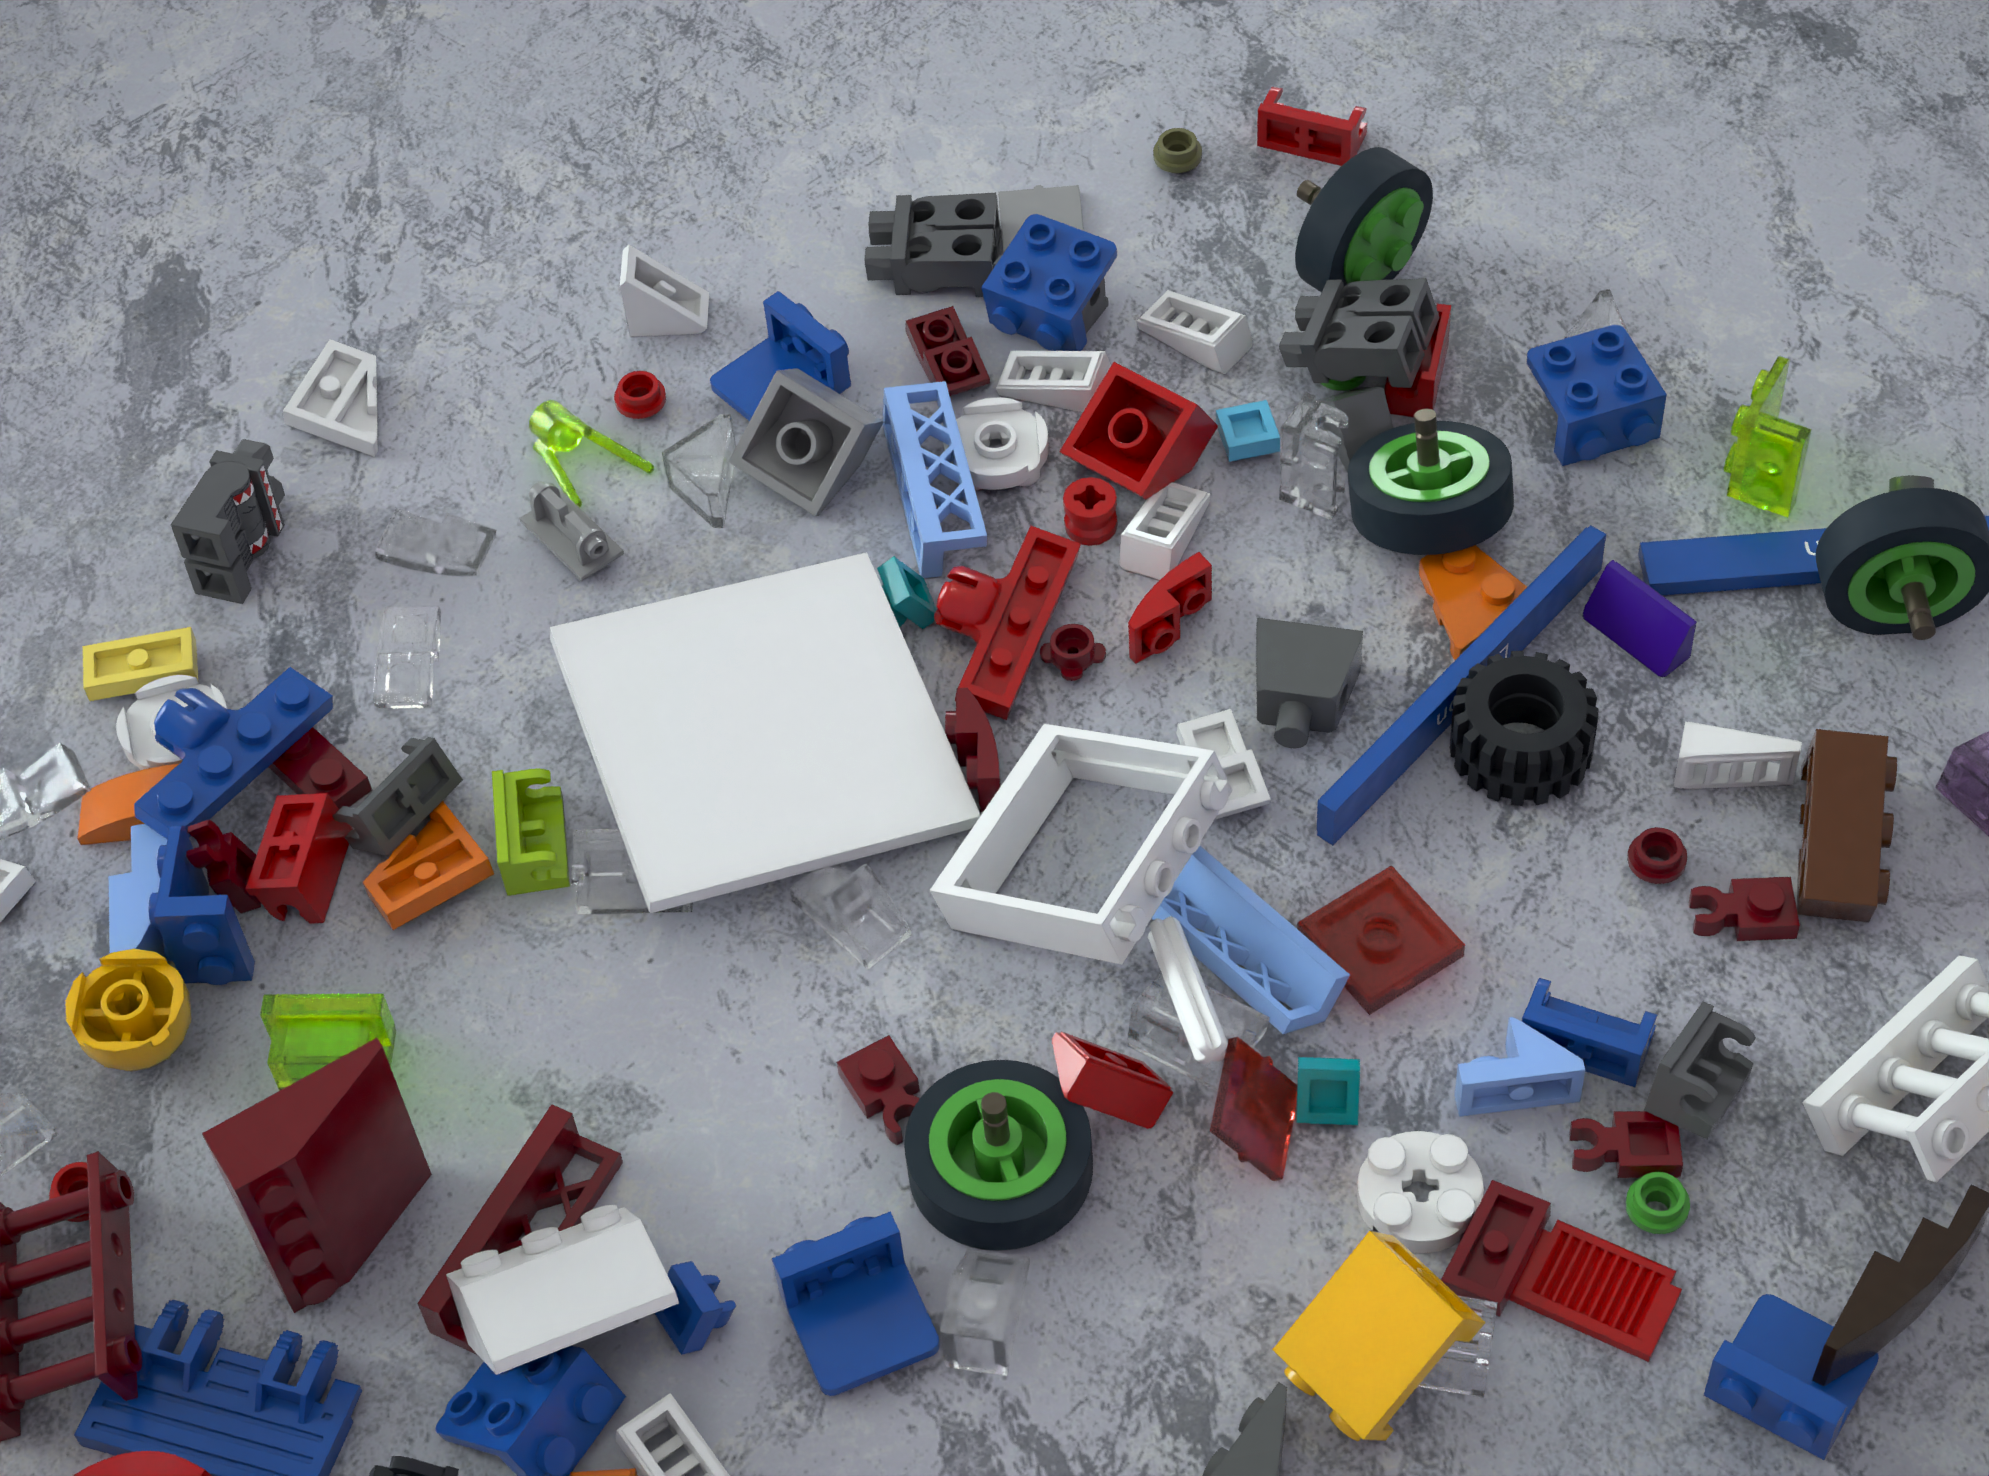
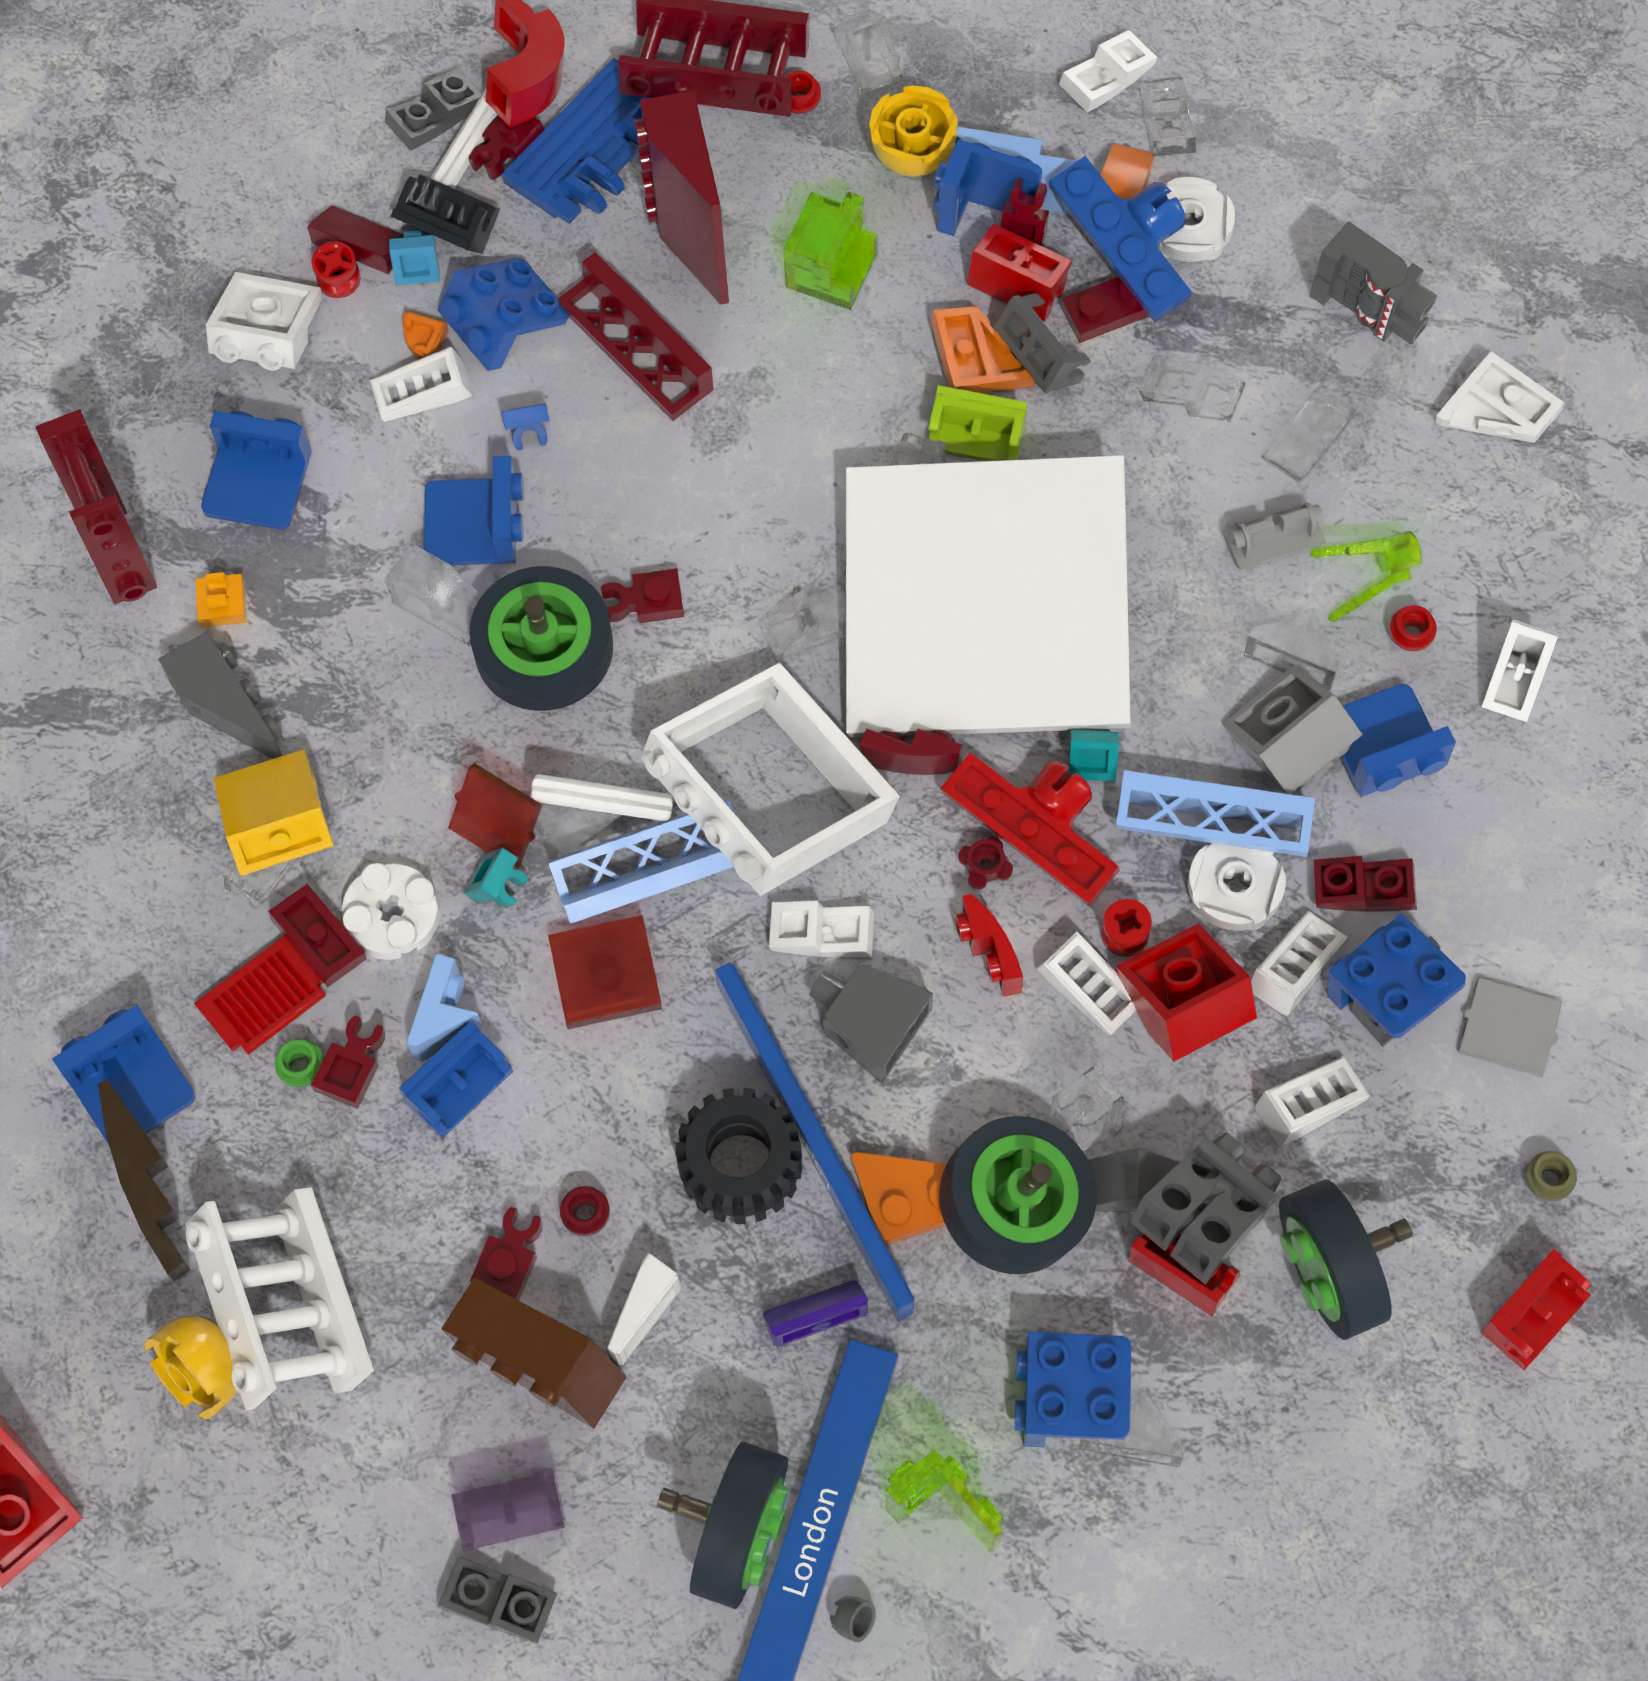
camera: 110 degrees right, 15 degrees up
(130, 663) = (1262, 208): light yellow plate -> none
(559, 1288) = (554, 331): white slope -> none
(935, 242) = (1502, 899): dark grey hips -> none
(1109, 1081) = (564, 726): red slope -> none
(1248, 430) = (1165, 1089): medium azure plate -> none
(1700, 1074) = (370, 1132): dark grey hinge -> none

